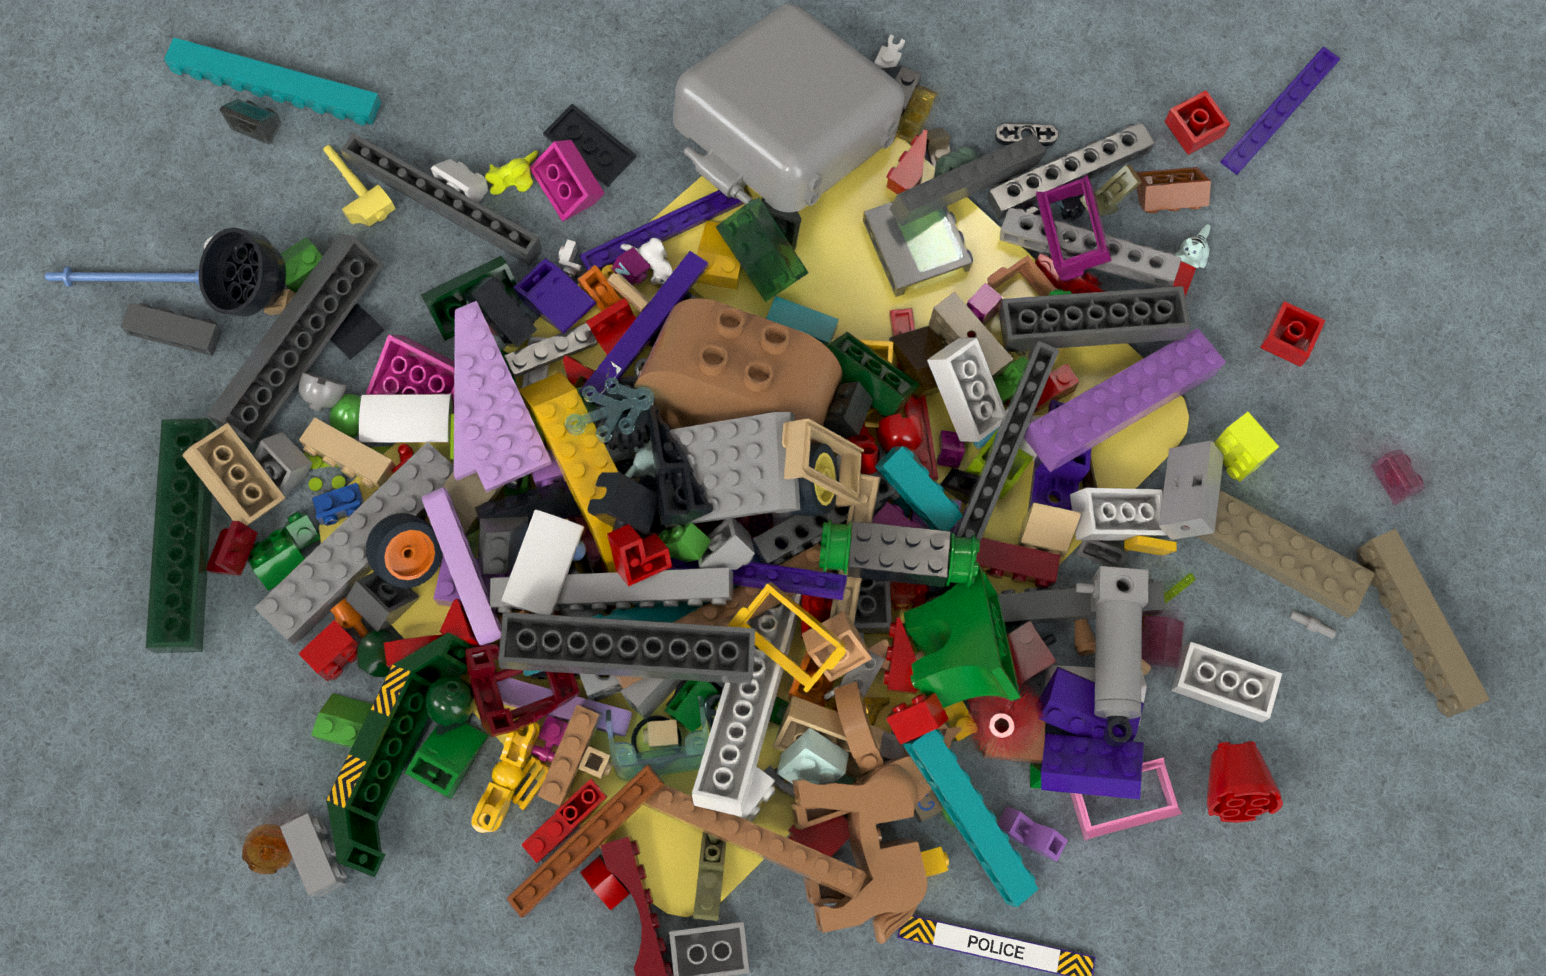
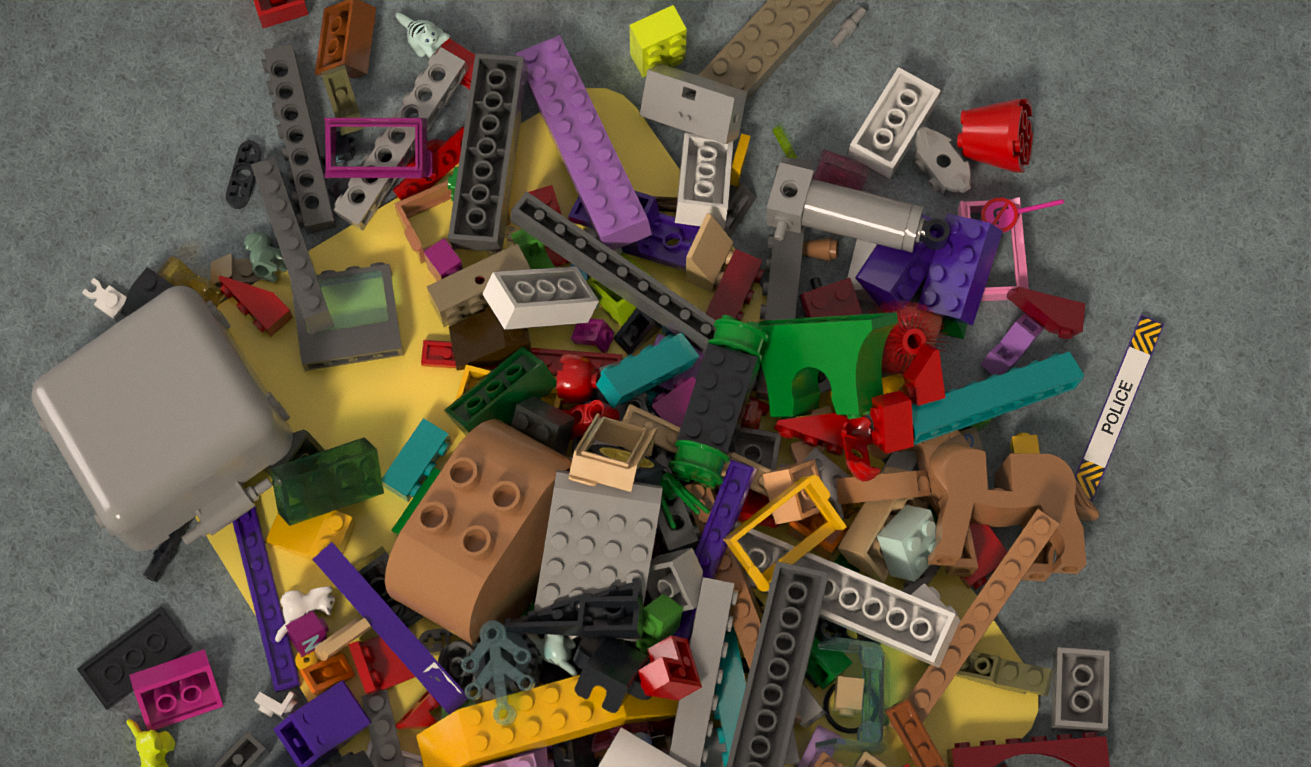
camera: 75 degrees left, 0 degrees up
(677, 145) = (163, 554): none -> black pin
(809, 528) = (672, 489): none -> green plant
(897, 691) = (857, 435): none -> red piece
(967, 741) = (924, 377): none -> red slope
(1073, 869) = (1050, 311): none -> dark red slope
(1159, 799) = (1004, 214): none -> piece
(1212, 720) = (929, 147): none -> light grey piece

